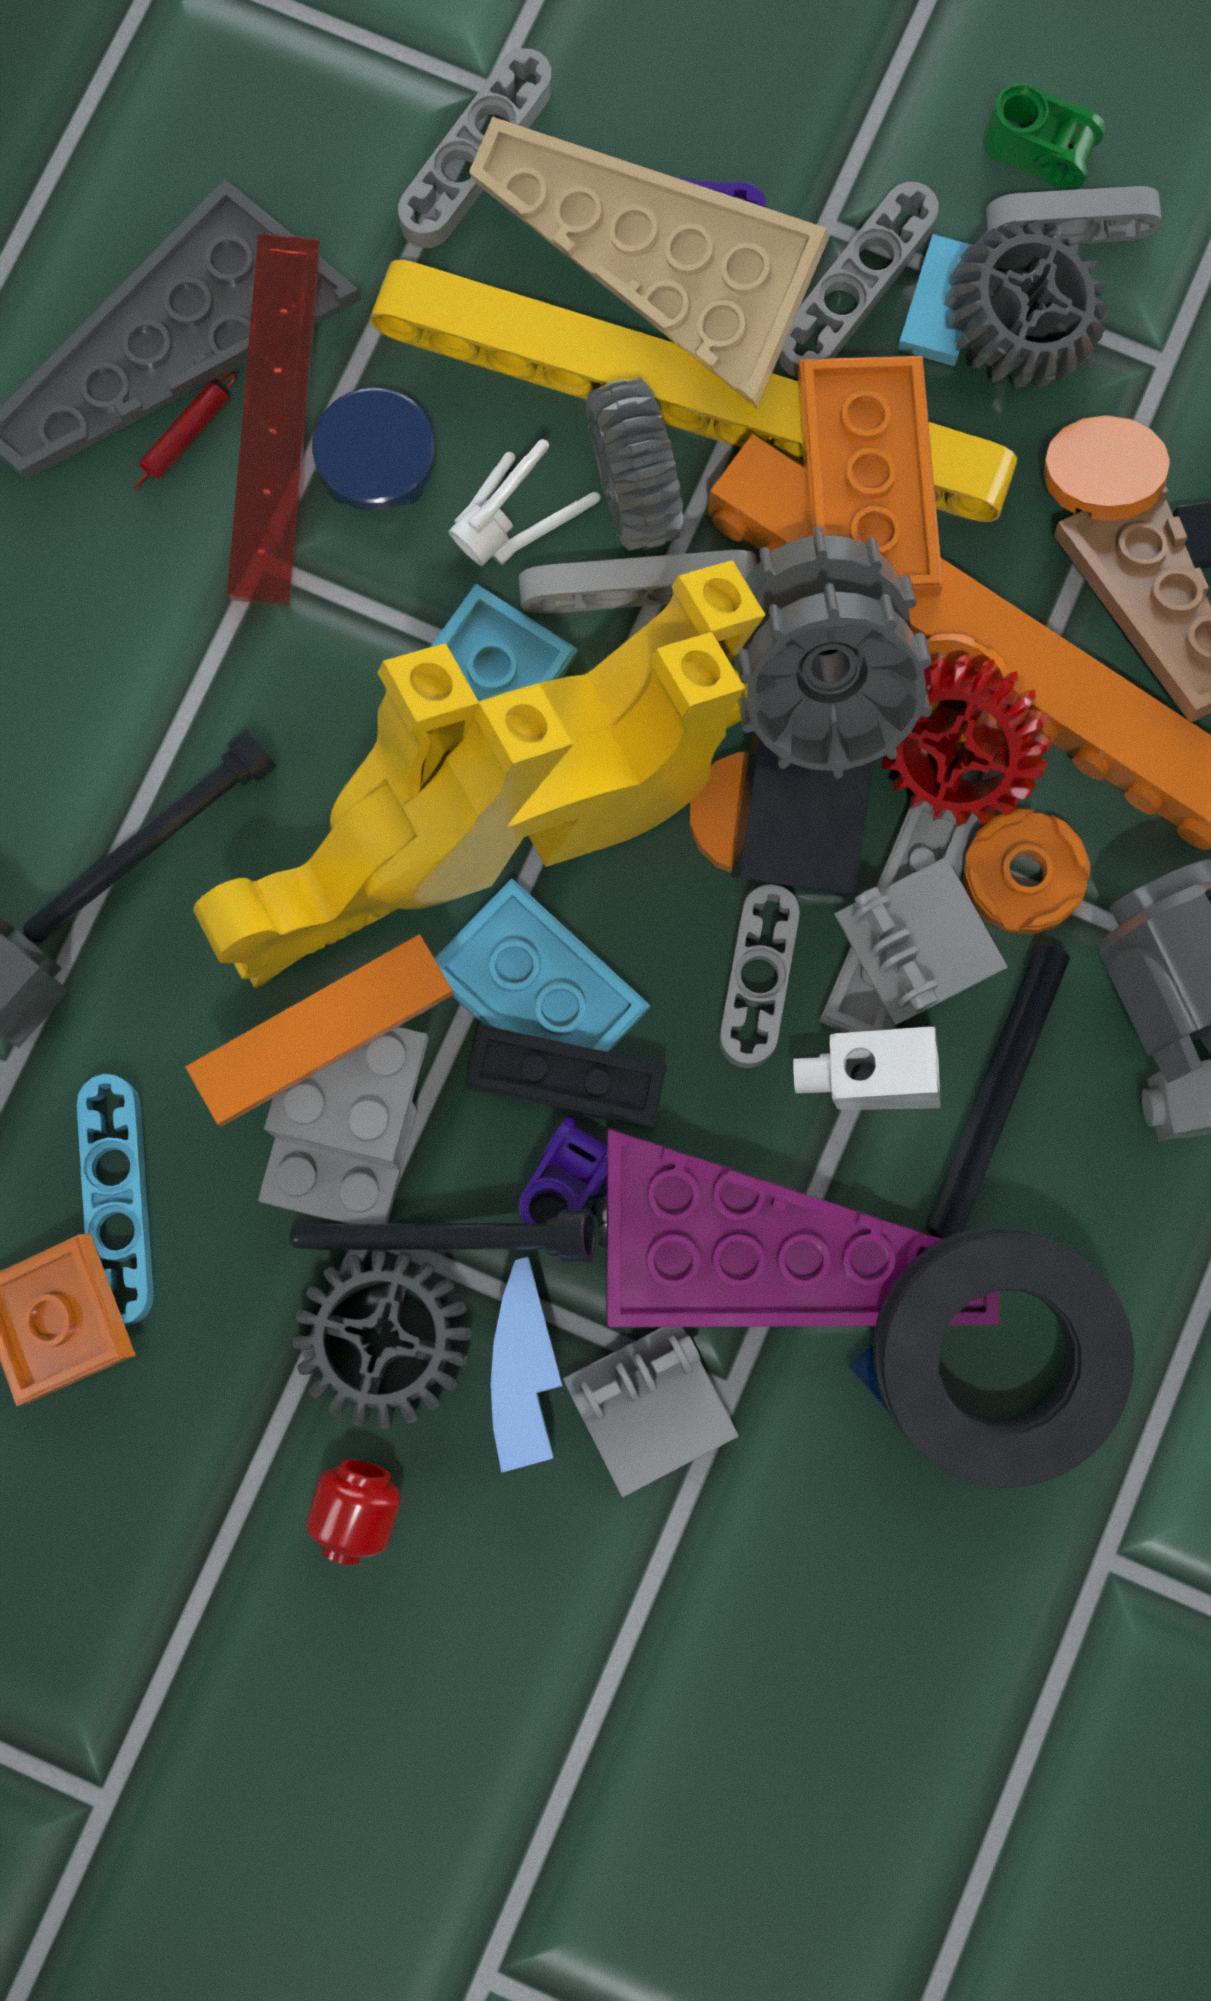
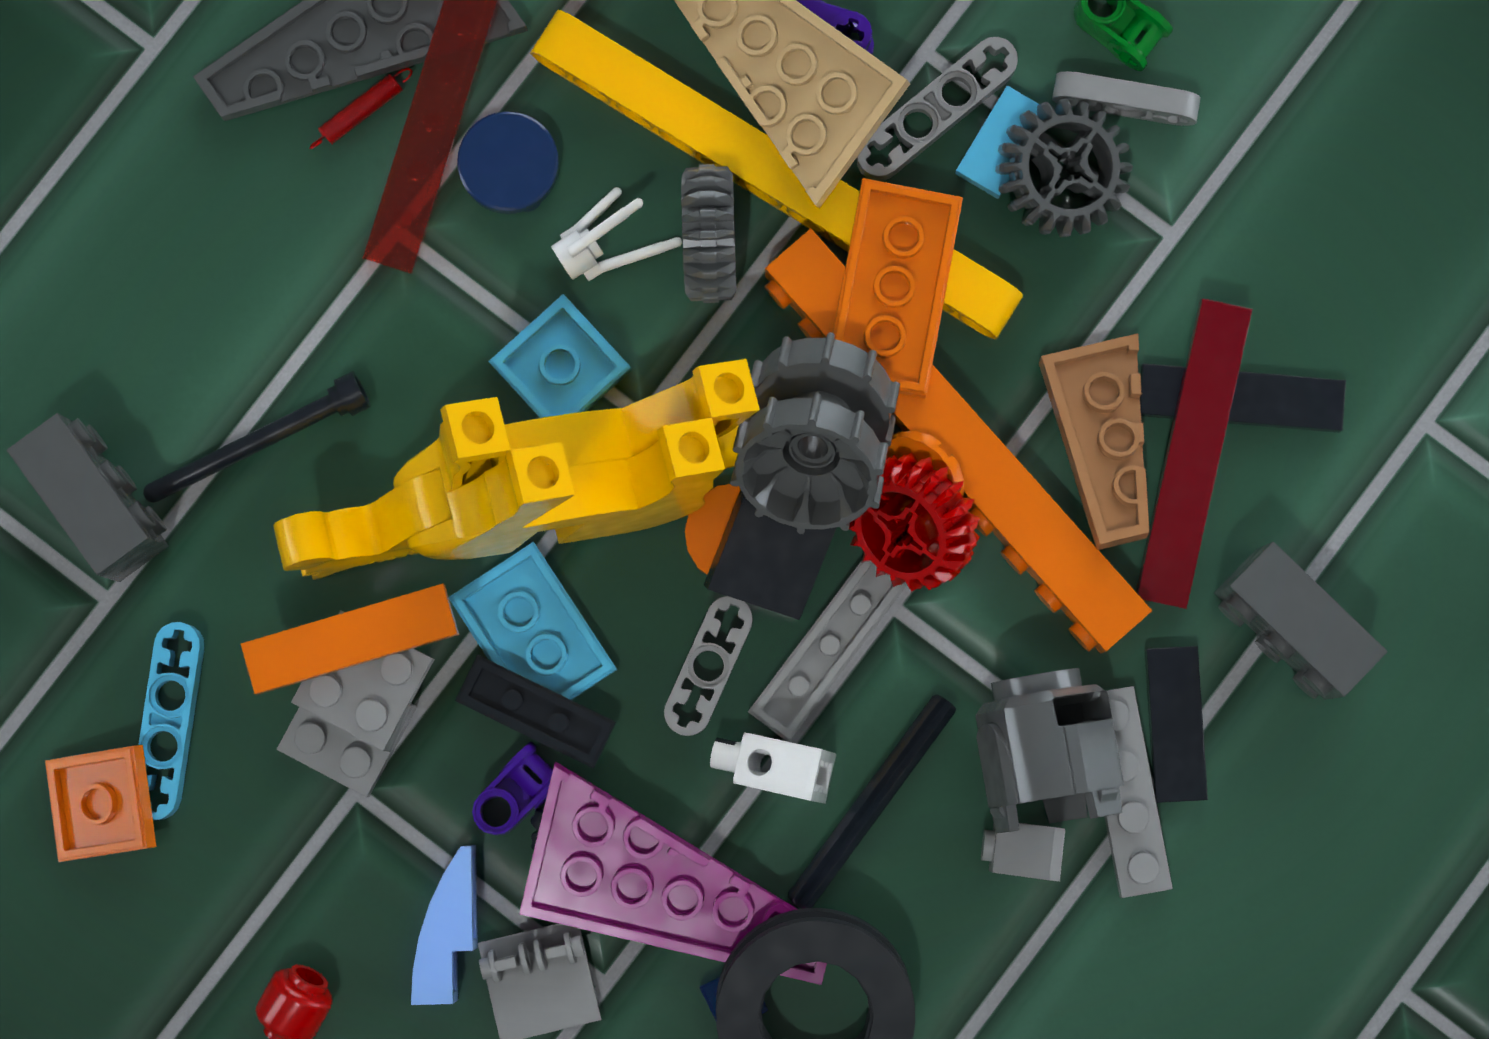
camera: 20 degrees right, 5 degrees up
(328, 1323) = (333, 901): dark grey gear -> none
(567, 1236) = (503, 839): black piece -> none
(616, 581) = (690, 323): light grey beam -> none
(920, 940) = (839, 671): light grey hinge -> none
(1005, 901) = (941, 663): orange tile -> none
(1106, 467) = (1093, 319): orange tile -> none

